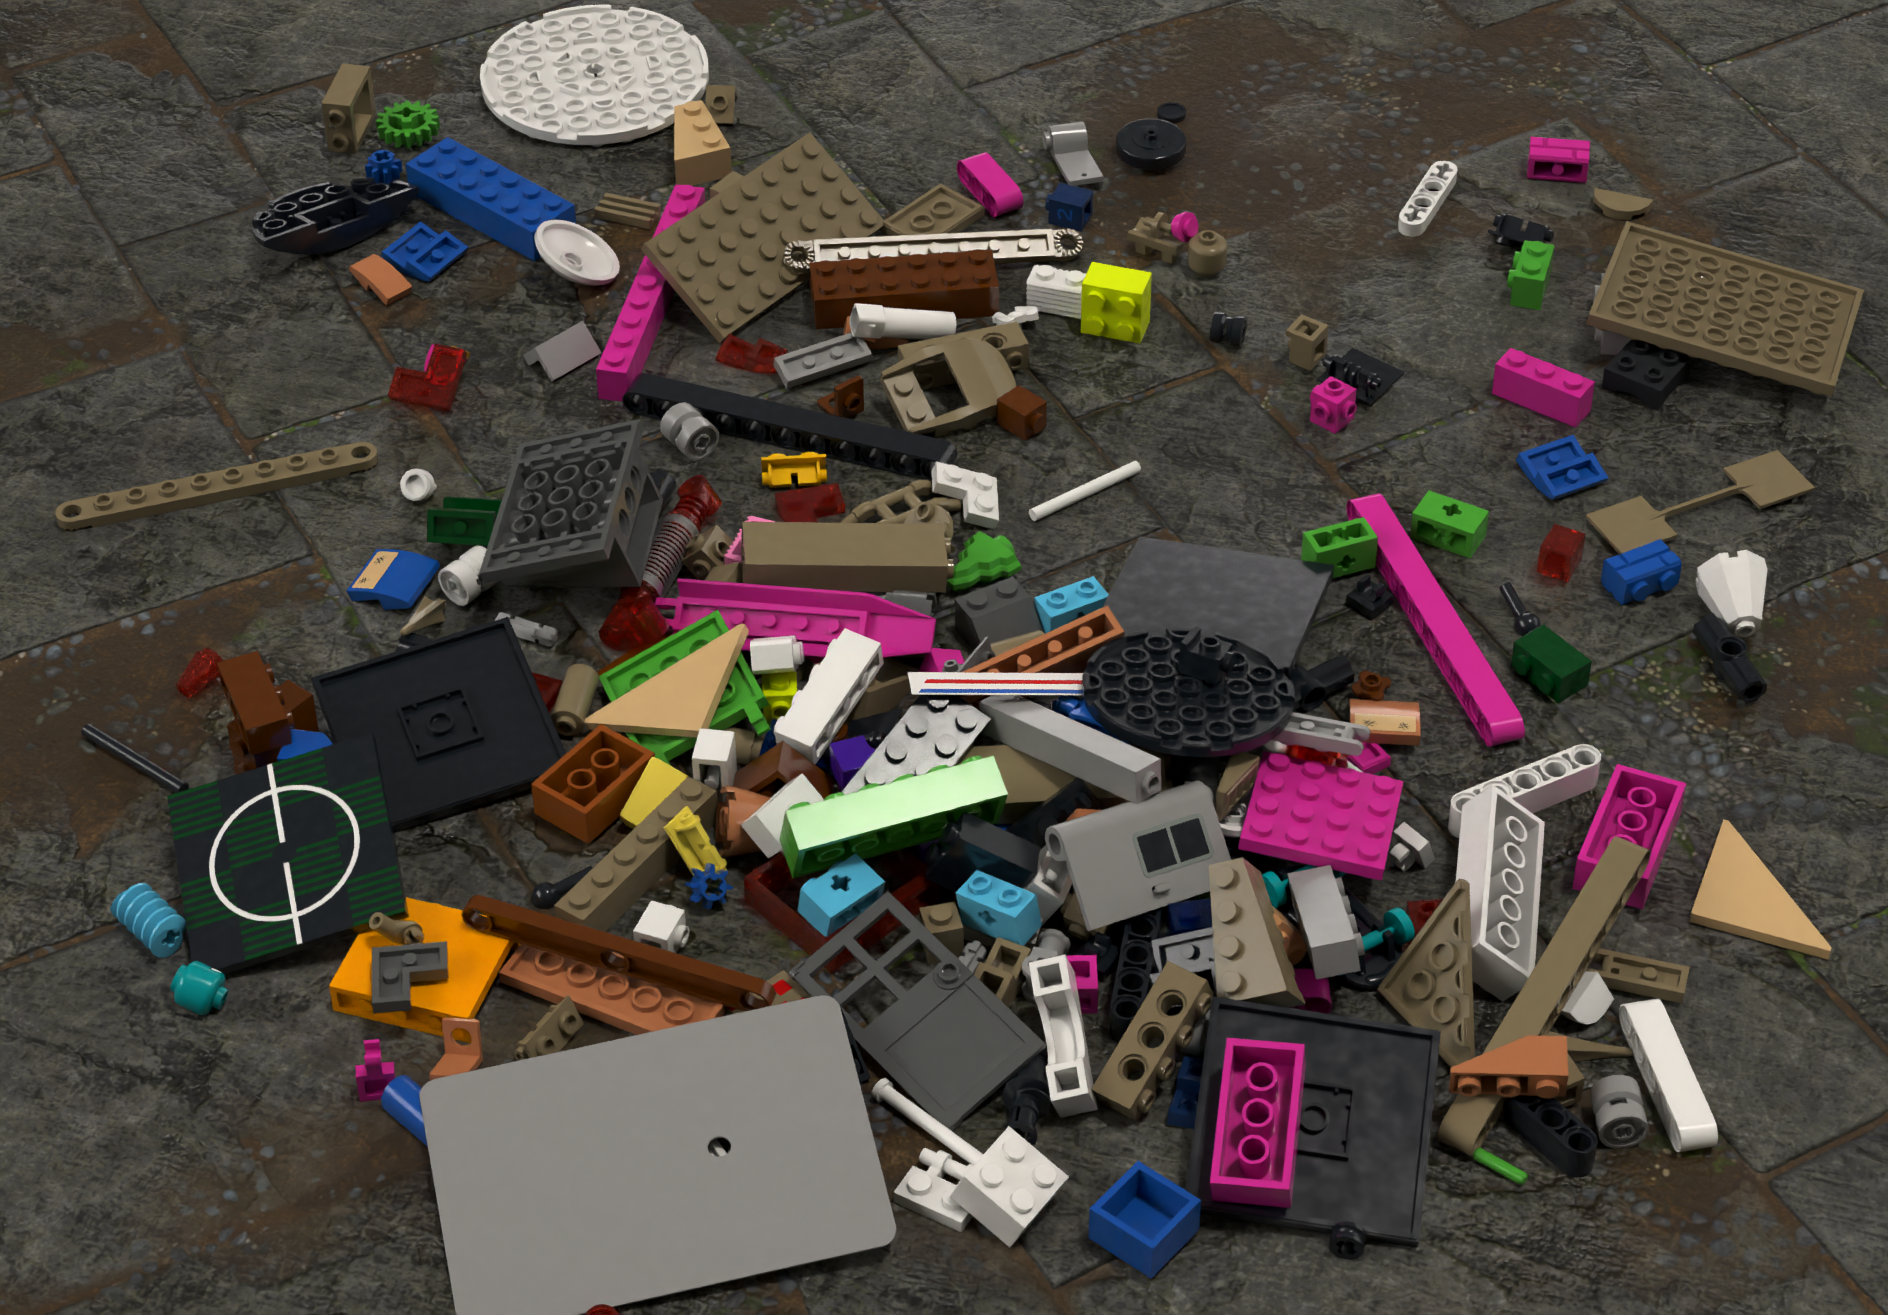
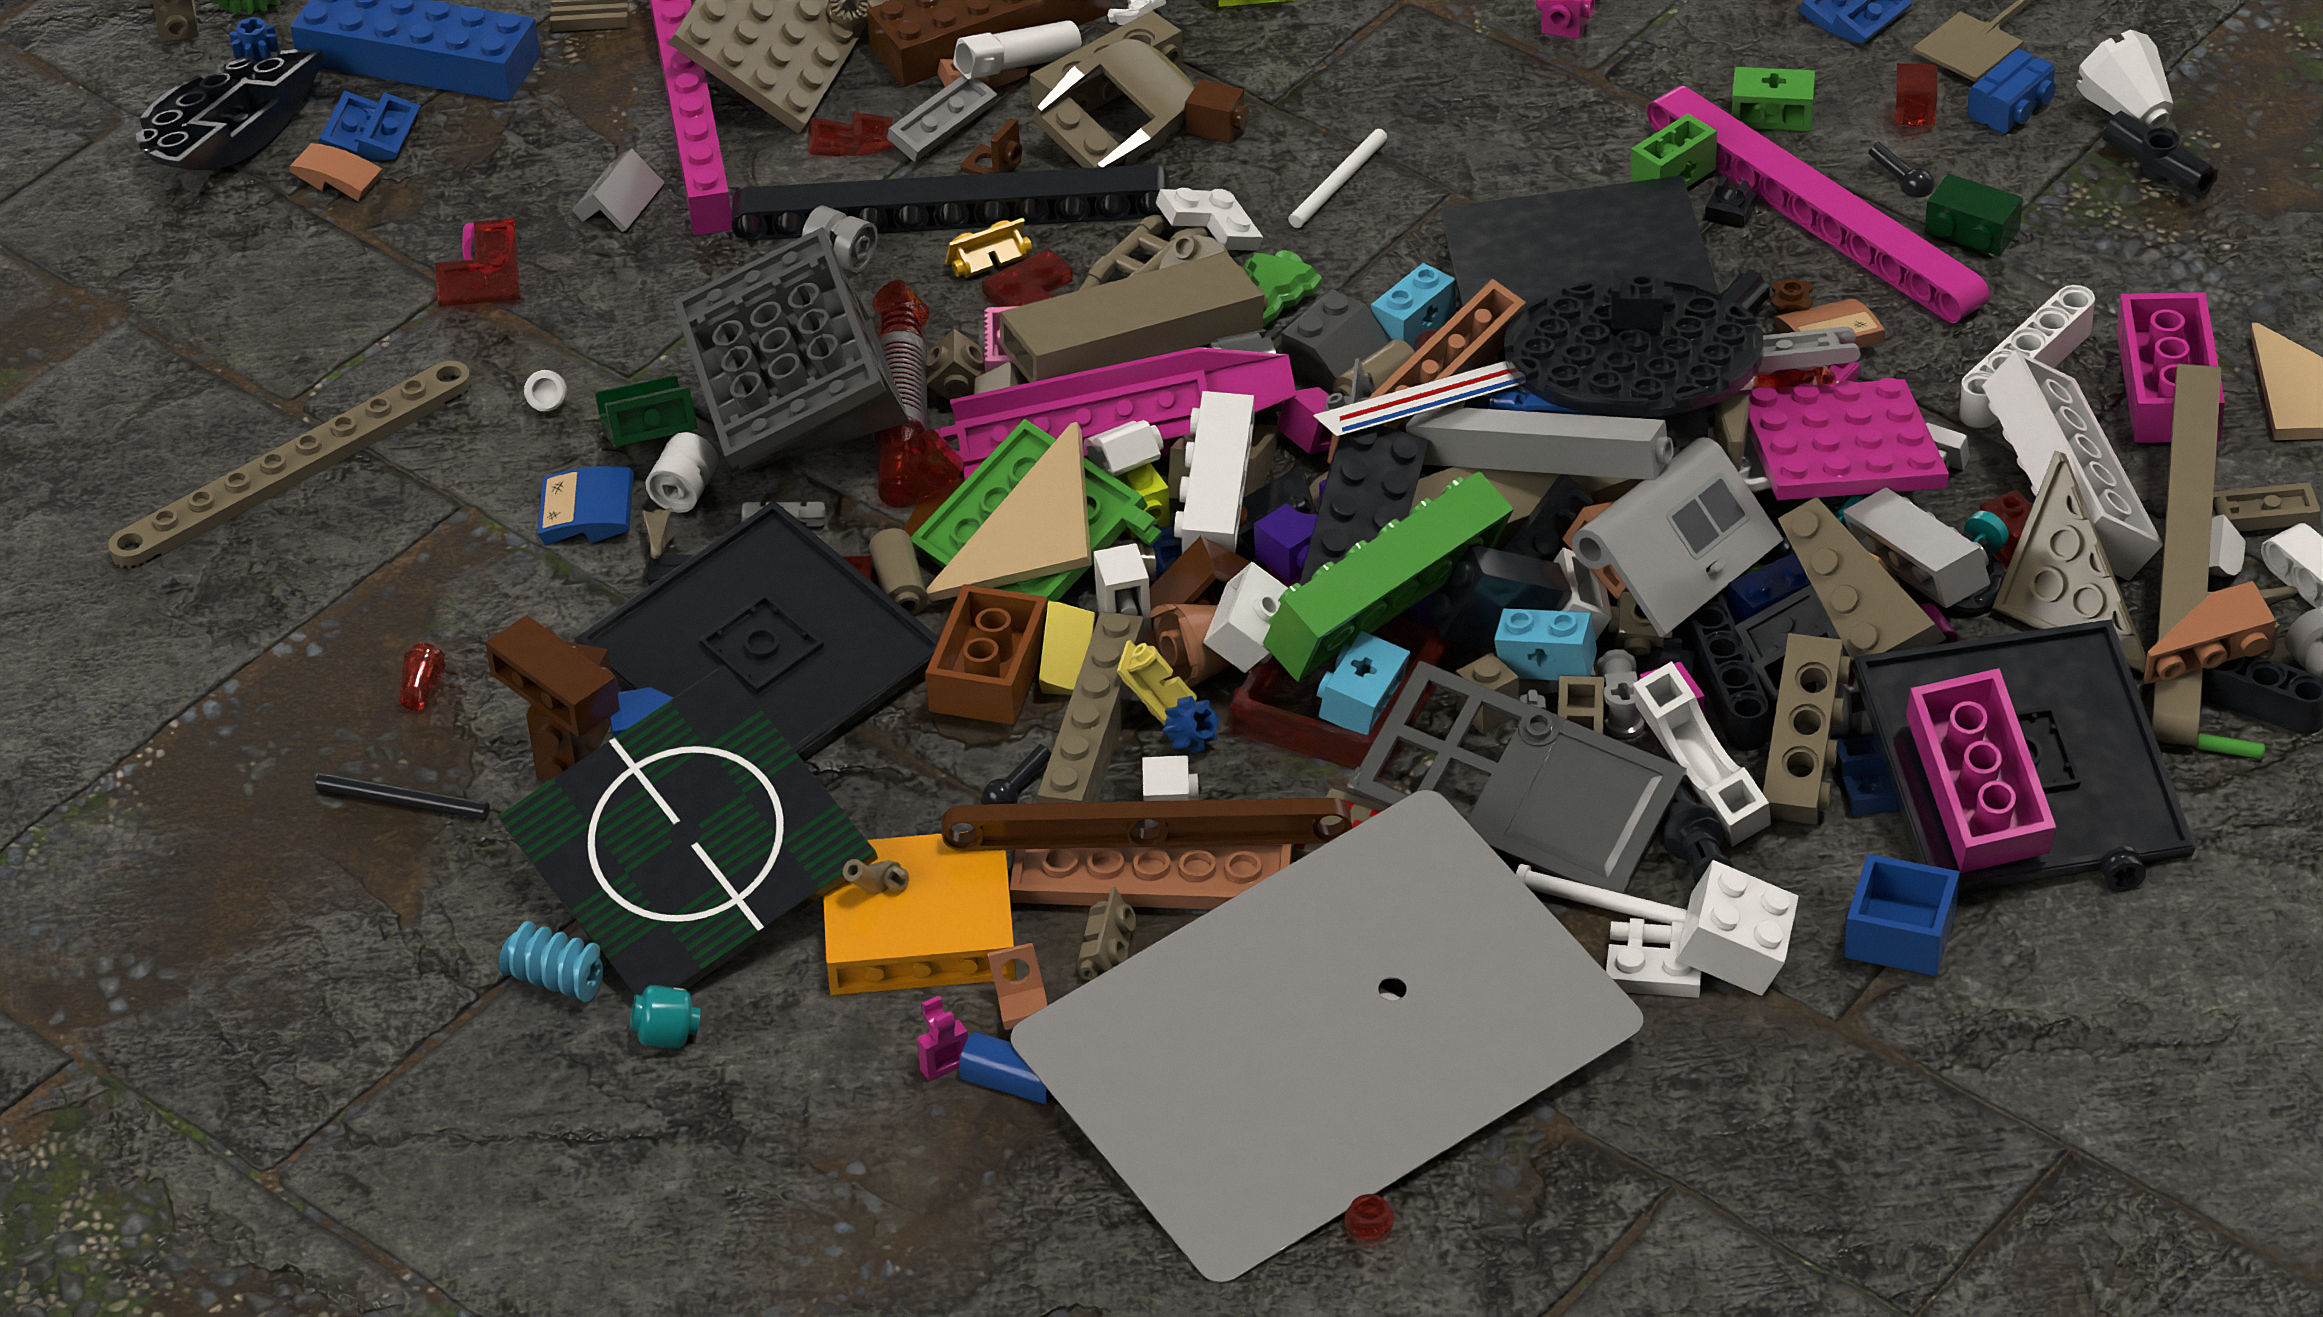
camera: 20 degrees left, 0 degrees up
(399, 966) = (906, 918): dark grey plate -> none
(576, 253) = (569, 76): white dish -> none

